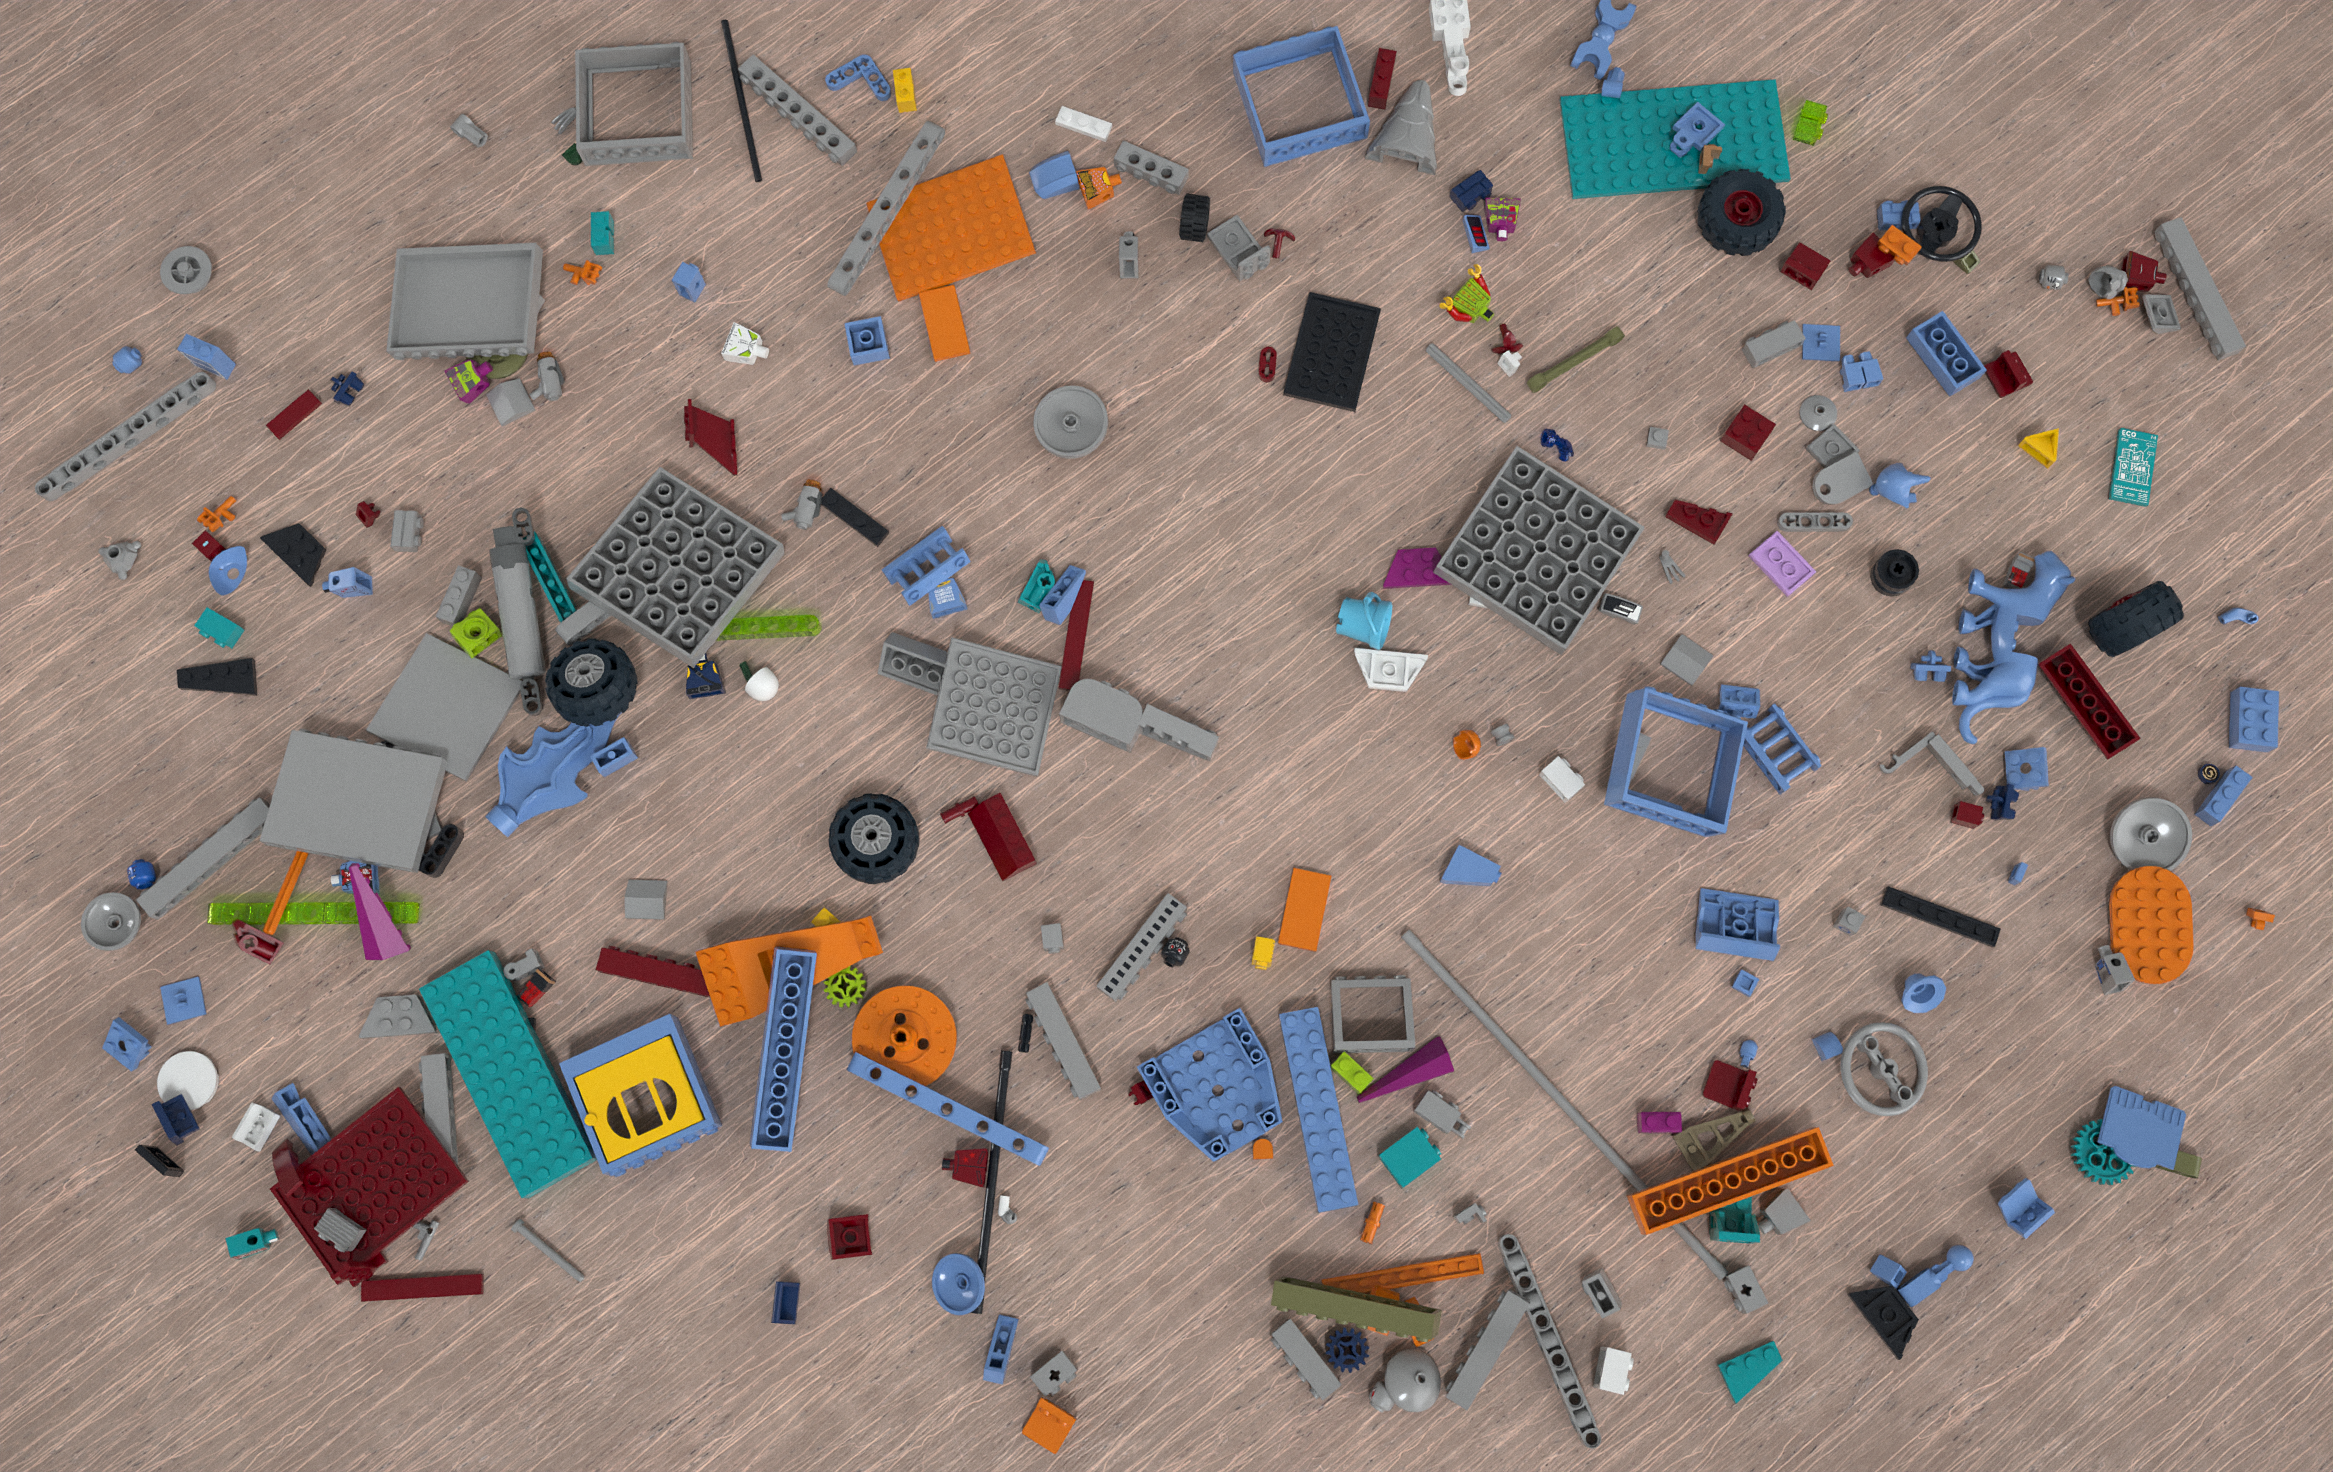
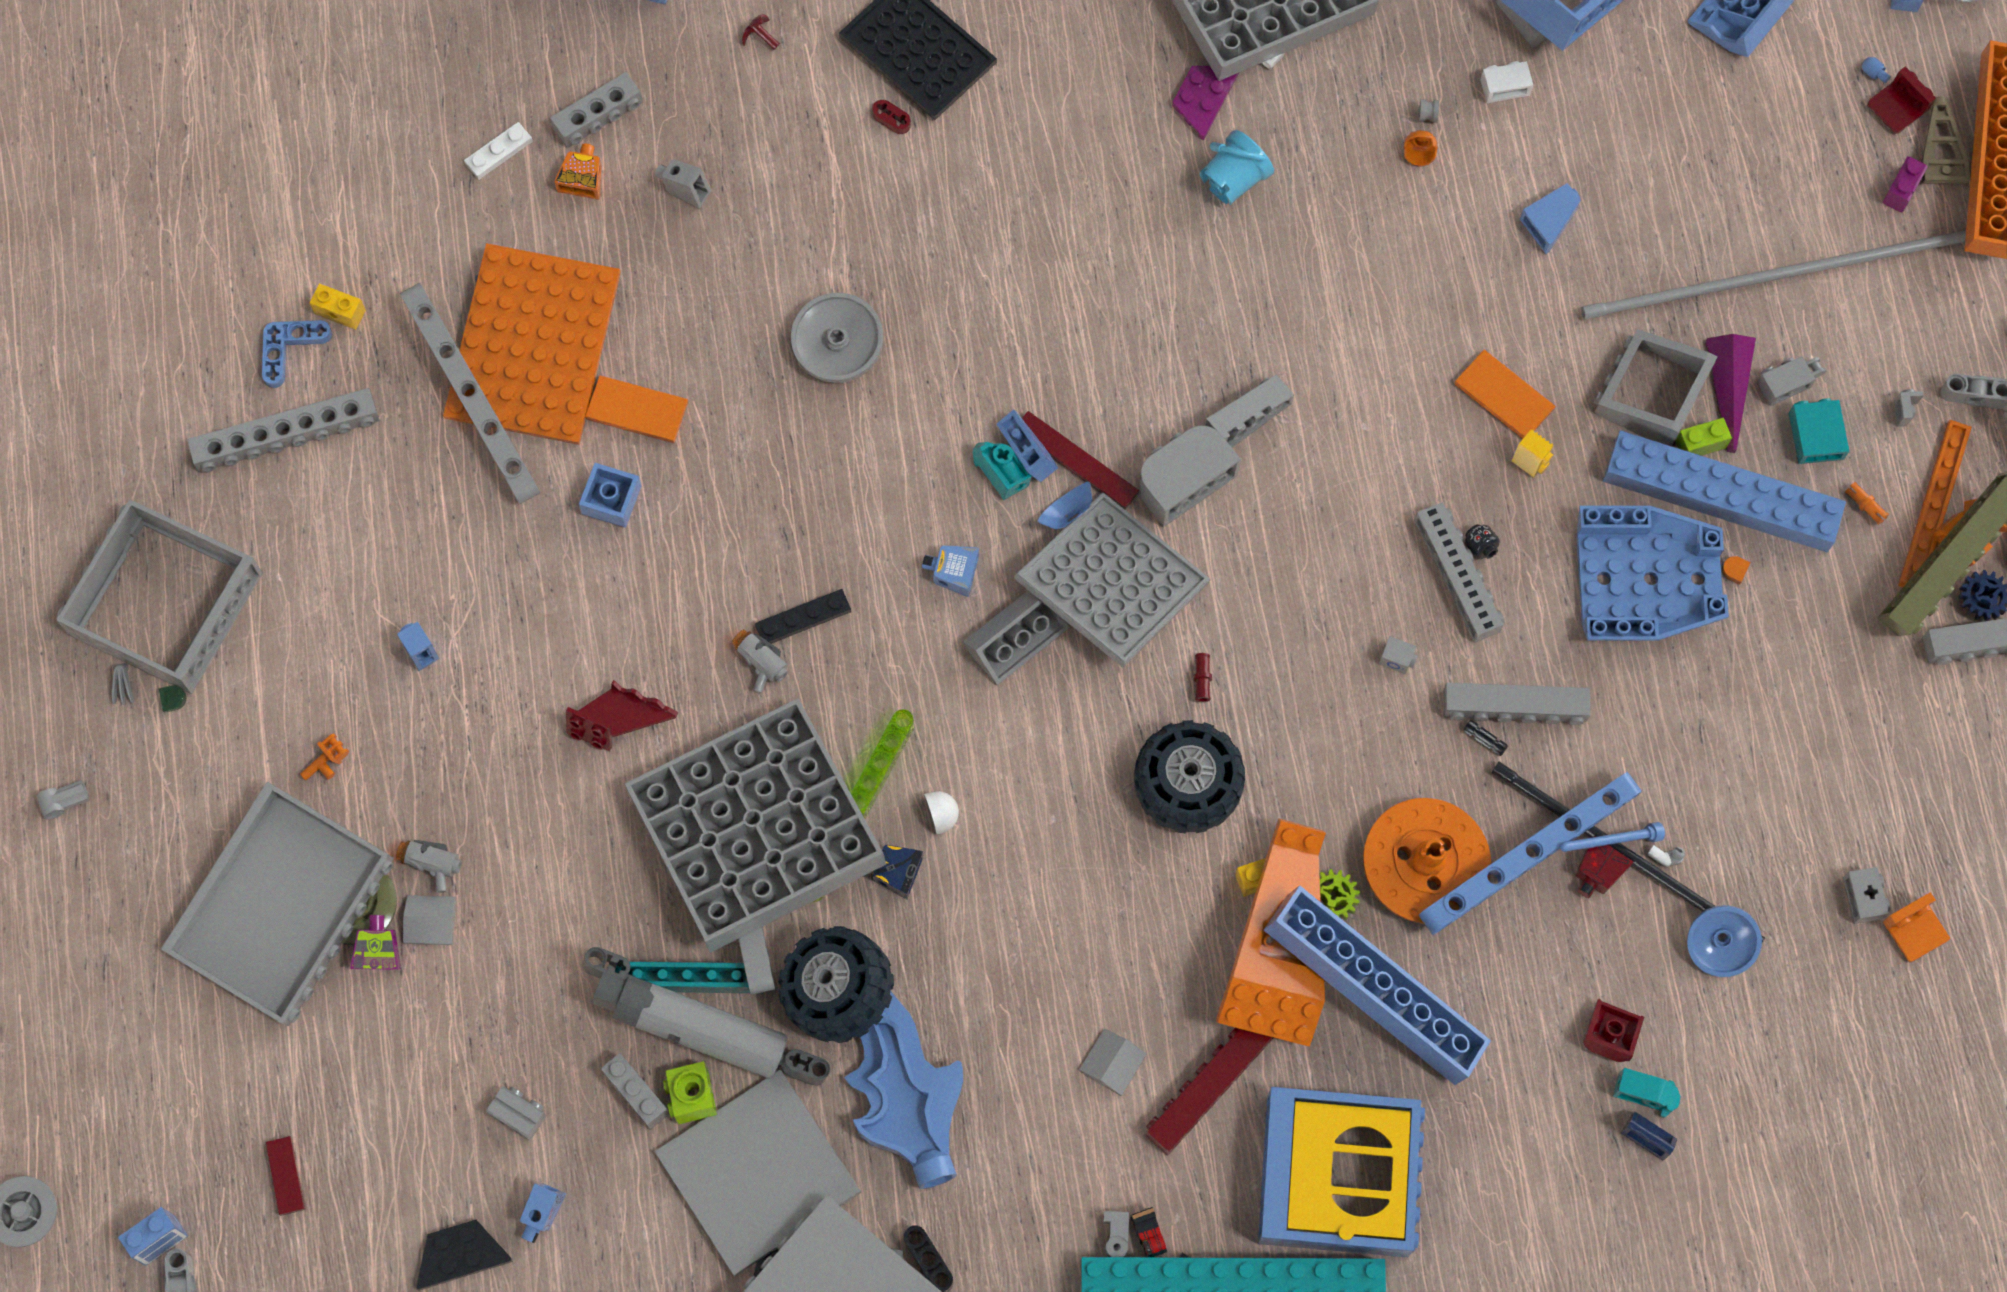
camera: 65 degrees left, 5 degrees down
(351, 382) = (290, 1096): dark blue hips -> none
(365, 513) = (466, 1149): dark red tile -> none
(602, 239) = (292, 713): teal piece -> none
(614, 757) = (931, 1010): medium blue brick -> none
(741, 101) = (228, 484): black piece -> none
(743, 346) = (529, 628): white torso -> none
(746, 670) = (917, 818): clear green tile -> none
(817, 1285) = (1647, 1091): none -> teal piece
(916, 556) = (889, 566): medium blue fence -> none
(1000, 1349) = (1814, 937): medium blue slope -> none
(1001, 837) = (1259, 648): dark red slope -> none
(1017, 1191) = (1652, 832): none -> medium blue piece
(1025, 644) = (1070, 504): none -> medium blue piece
(1054, 176) = (540, 208): medium blue slope -> none
(1141, 1092) = (1614, 652): dark red tile -> none
(1194, 217) = (687, 93): black tyre -> none
(1239, 248) = (746, 73): light grey bracket -> none
(1389, 669) = (1296, 178): white wing -> none
(1745, 983) = (1805, 33): medium blue plate -> none

